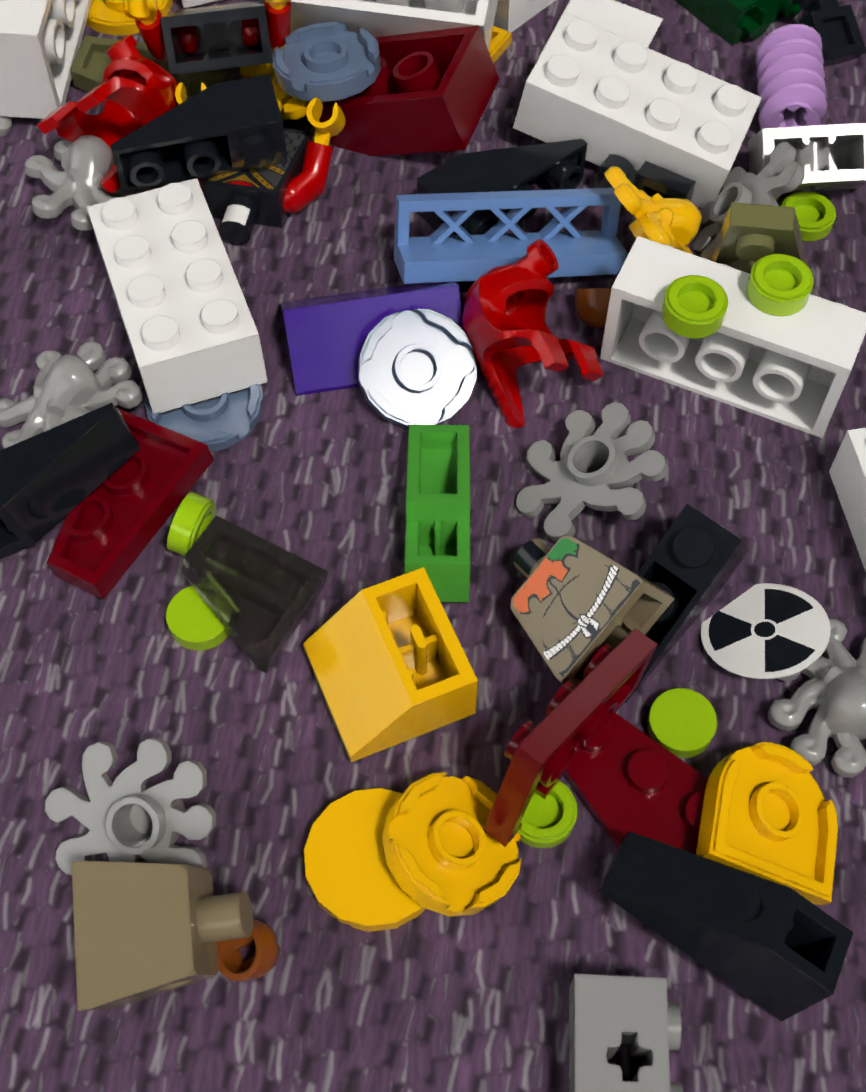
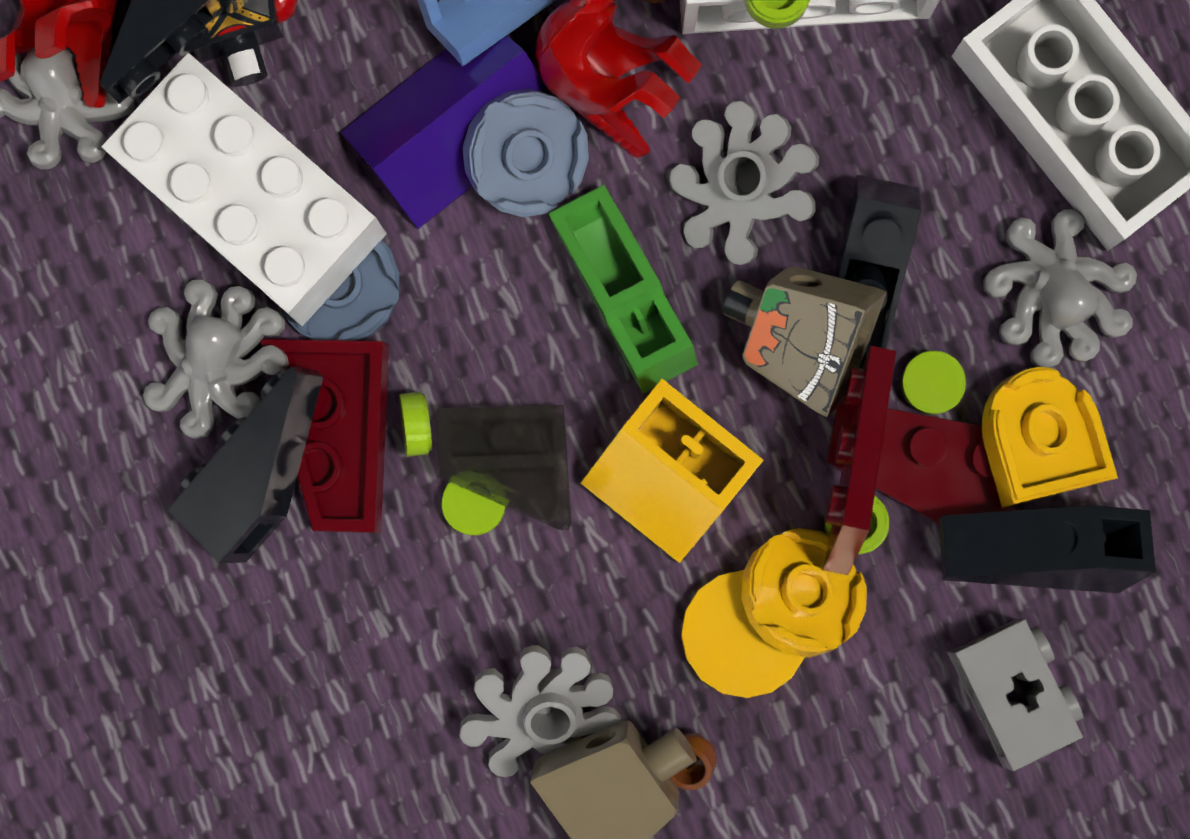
camera: 30 degrees left, 25 degrees up
(767, 632) = (968, 260): white sticker -> none

